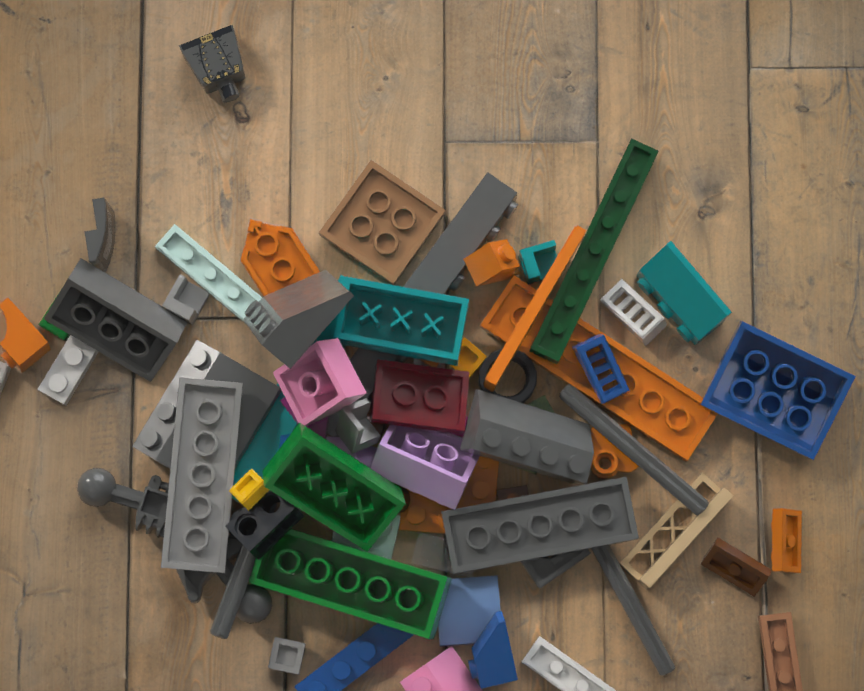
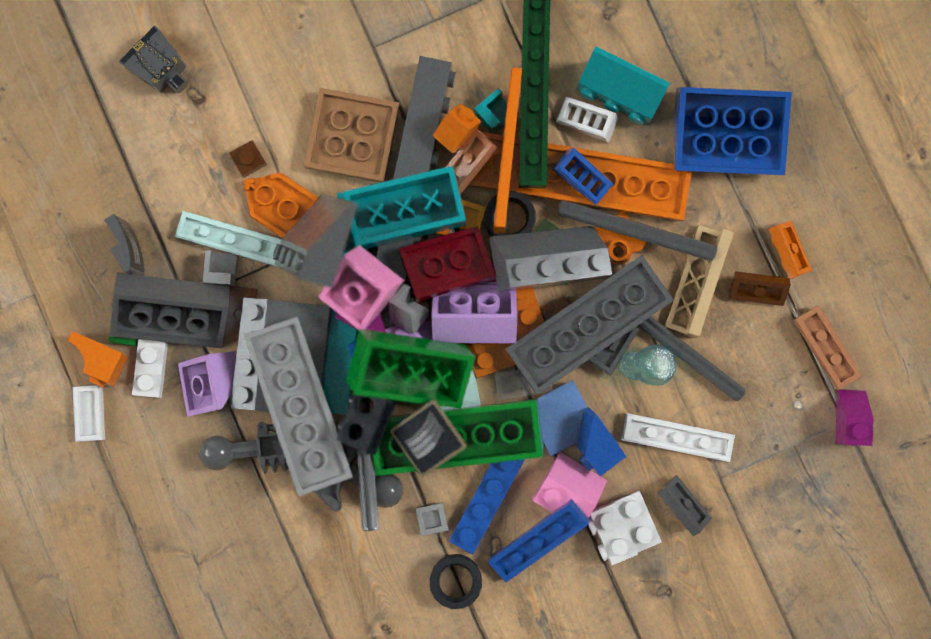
camera: 20 degrees left, 5 degrees up
(120, 409) = (207, 381): none -> lavender slope
(182, 348) = (235, 310): none -> reddish brown plate
(249, 489) = (342, 401): yellow tile -> none
(265, 200) = (248, 158): none -> reddish brown plate
(320, 566) = (428, 438): none -> slope
(493, 300) = (471, 158): none -> nougat plate
(585, 596) = (651, 365): none -> clear light blue hair

